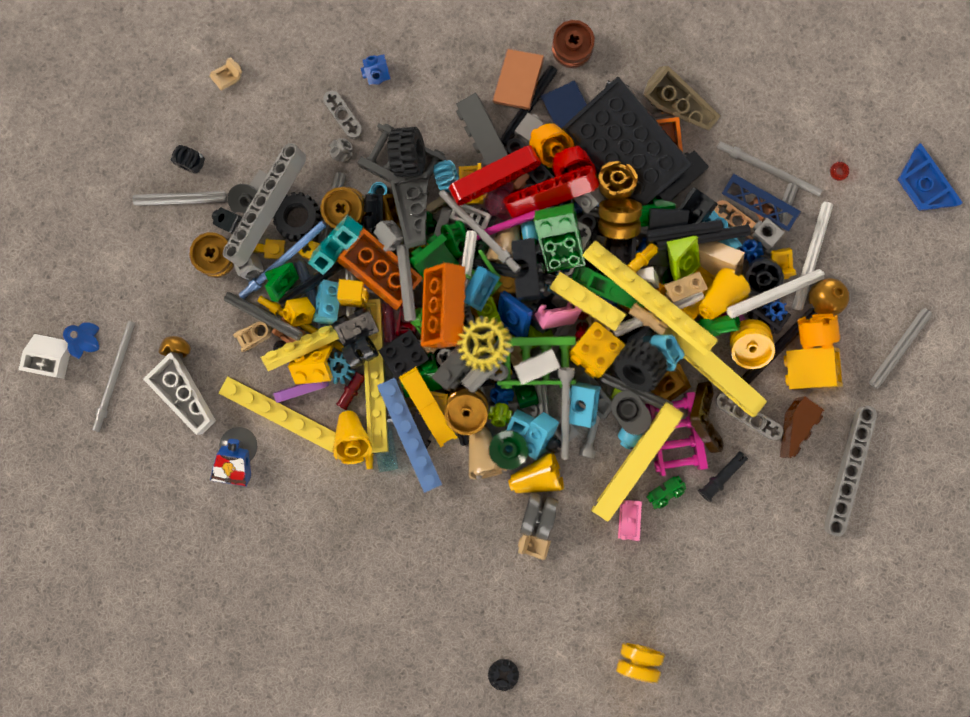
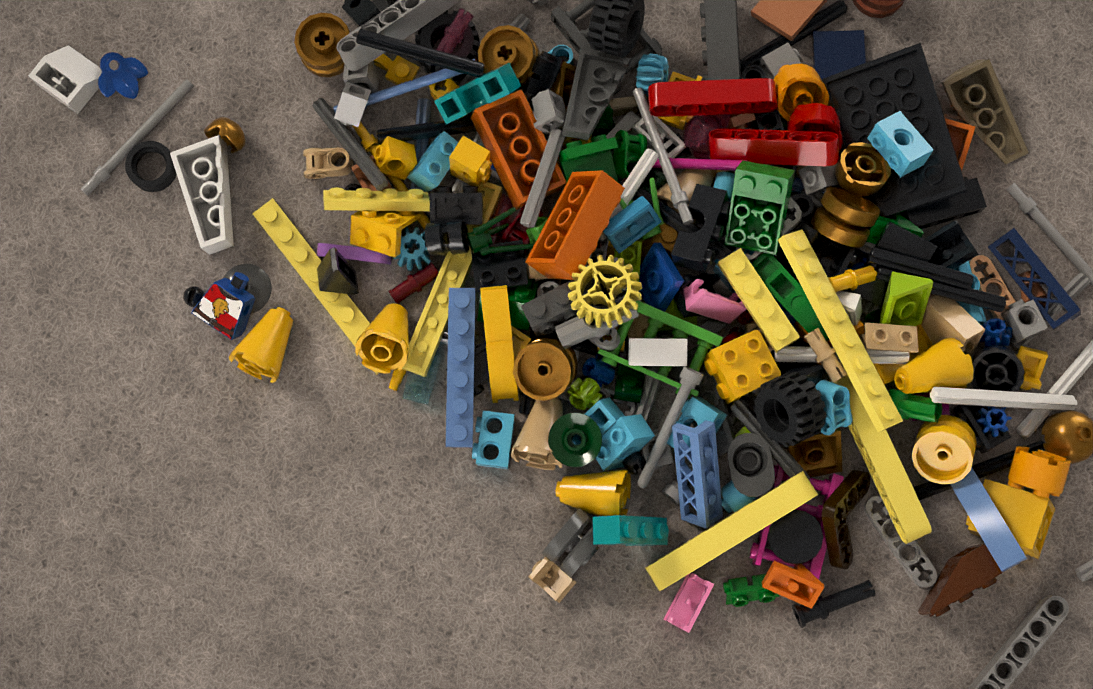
camera: 25 degrees right, 5 degrees down
(118, 392) = (135, 155): none -> black tyre
(209, 466) = (196, 298): none -> black hinge
(252, 288) = (352, 104): none -> light grey brick
(270, 479) = (265, 345): none -> yellow cone
(280, 280) = (391, 110): green slope -> none
(283, 235) = (419, 53): none -> black axle
(296, 409) = (337, 274): none -> black slope
(299, 210) = (455, 32): none -> clear pink pin
(382, 342) = (481, 237): none -> dark green plant
(458, 470) = (501, 440): none -> medium azure brick
(571, 493) = (630, 530): none -> teal arch
(603, 433) = (704, 475): none -> medium blue fence
(644, 153) = (900, 144): none -> medium azure brick
(681, 446) = (796, 537): none -> black tile
(693, 477) = (793, 583): none -> orange slope
(801, 379) = (988, 521): none -> medium blue slope

